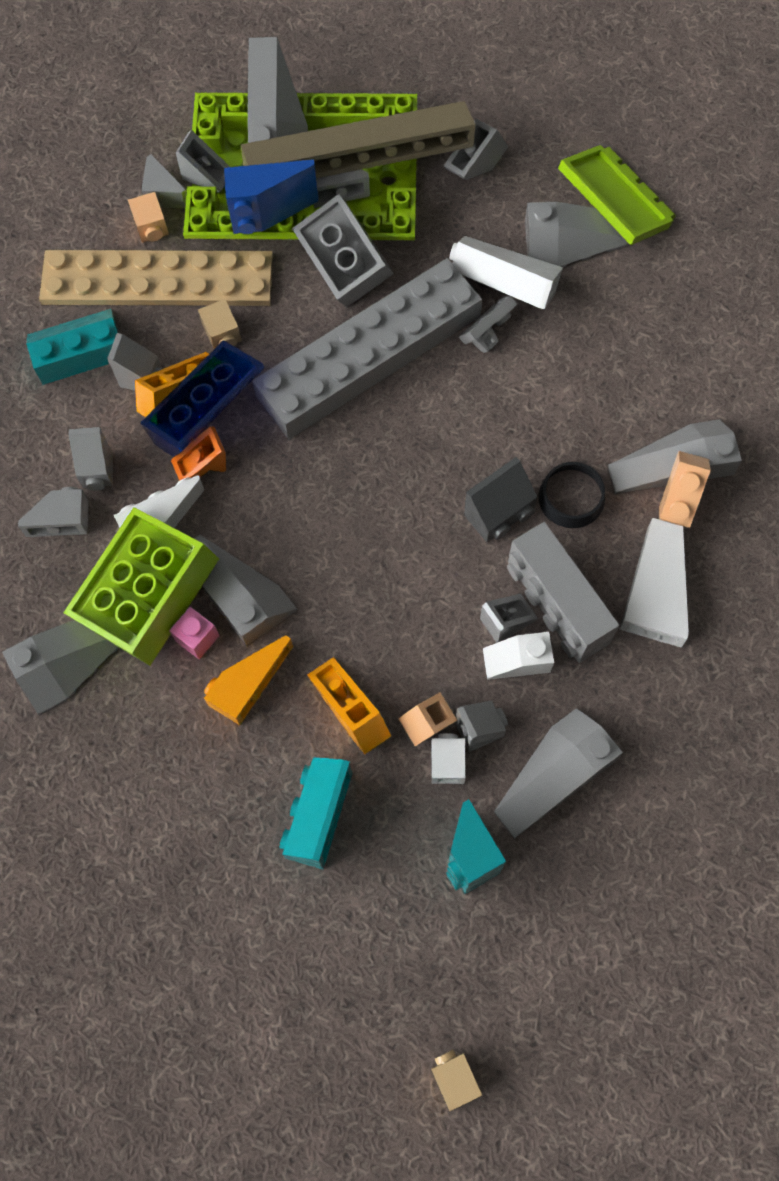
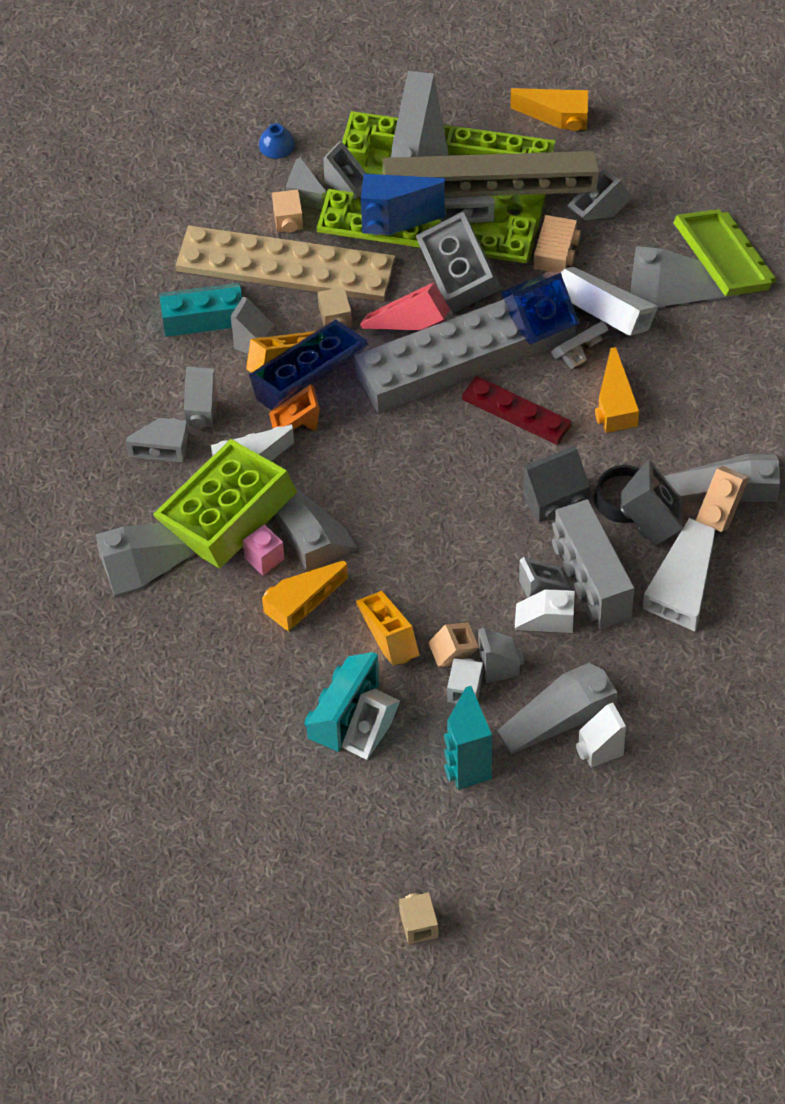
camera: 10 degrees right, 15 degrees down
(123, 138) = (276, 141): none -> blue brick
(302, 317) = (412, 312): none -> coral slope
(352, 831) = (370, 722): none -> white slope
(407, 55) = (553, 106): none -> light orange slope
(436, 412) = (516, 410): none -> dark red plate
(439, 212) = (556, 244): none -> light nougat brick
(444, 292) = (540, 307): none -> clear blue slope
(541, 385) = (616, 401): none -> light orange slope
(610, 508) = (652, 504): none -> dark grey slope
(615, 809) = (602, 737): none -> white slope

